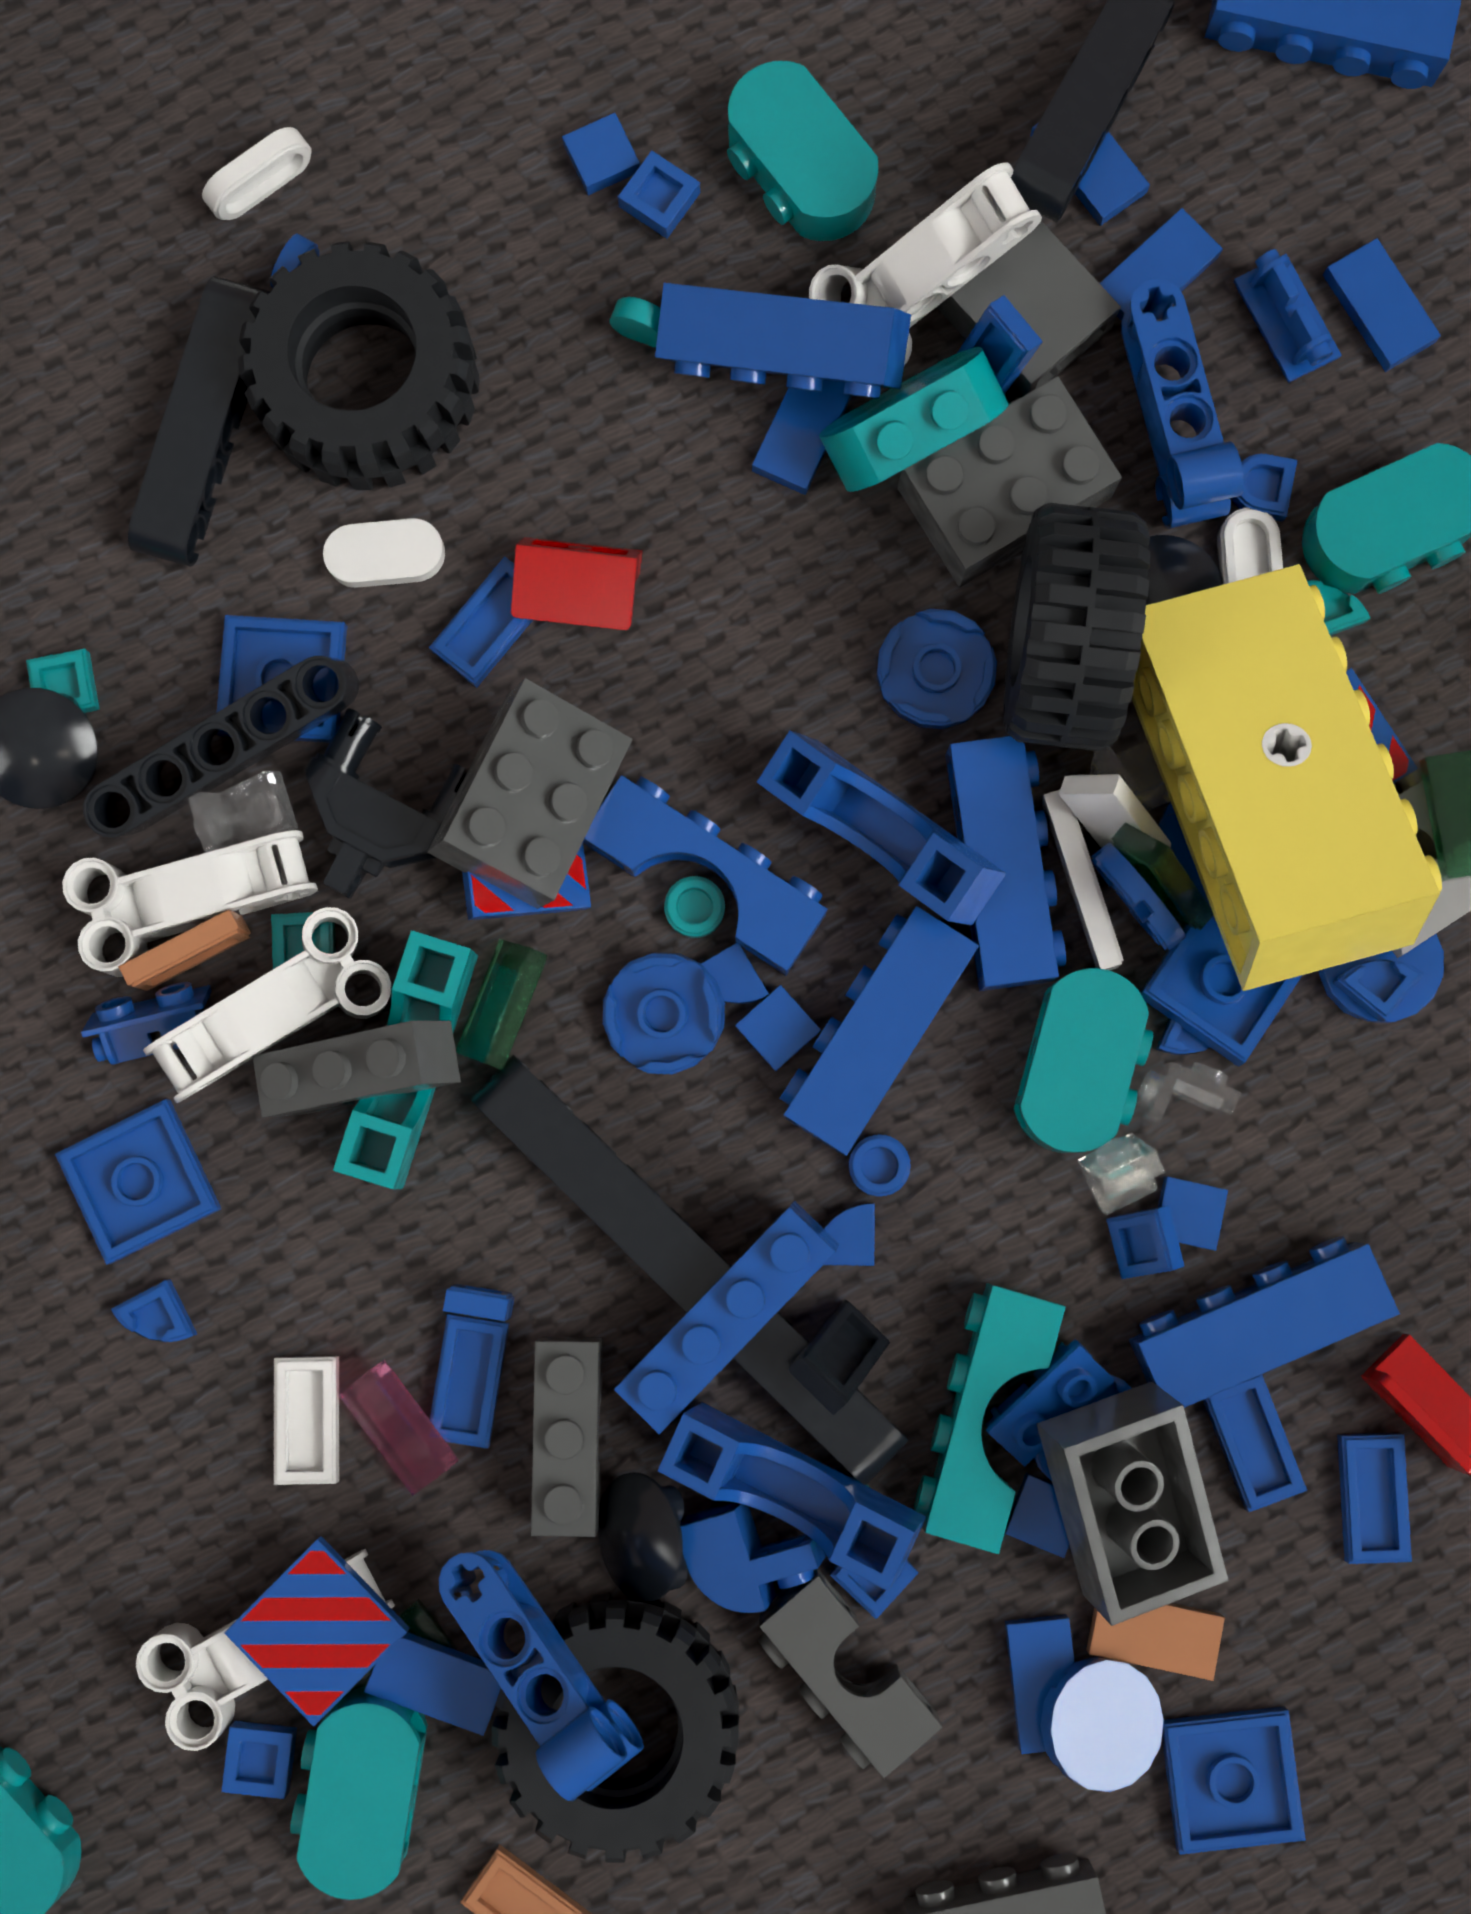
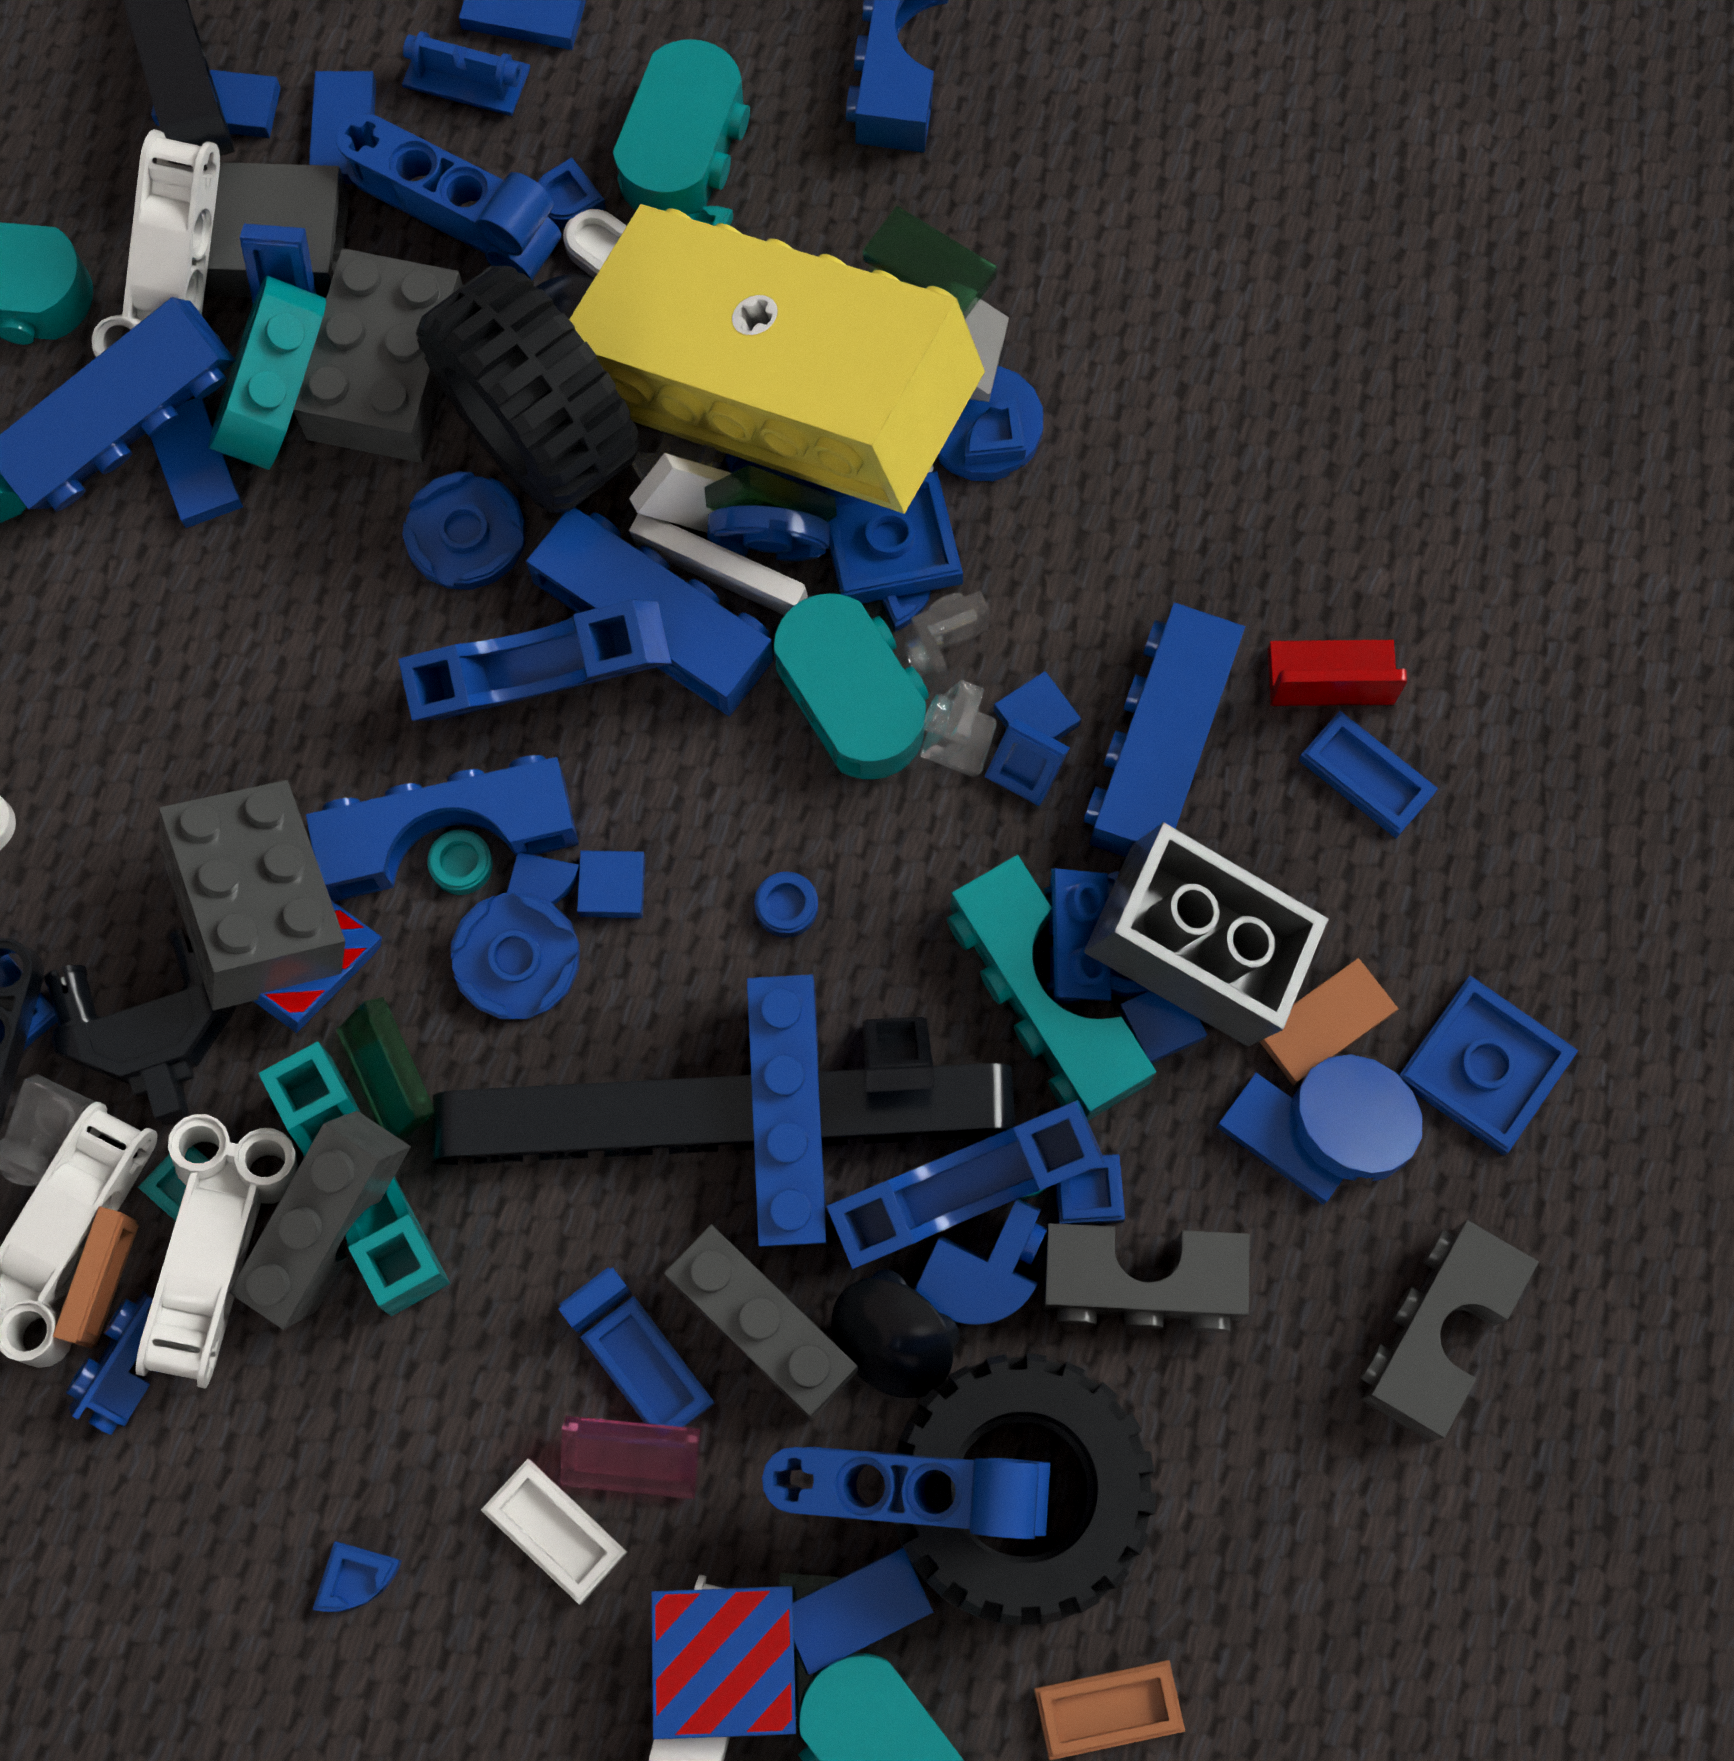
camera: 50 degrees left, 10 degrees down
(138, 1181) = (235, 1493): blue tile -> none
(482, 628) = (94, 815): blue tile -> none
(575, 583) = (131, 723): red panel -> none
(855, 1234) = (830, 973): blue tile -> none
(879, 1031) = (685, 808): blue brick -> none
(1254, 1444) = (1247, 821): blue tile -> none

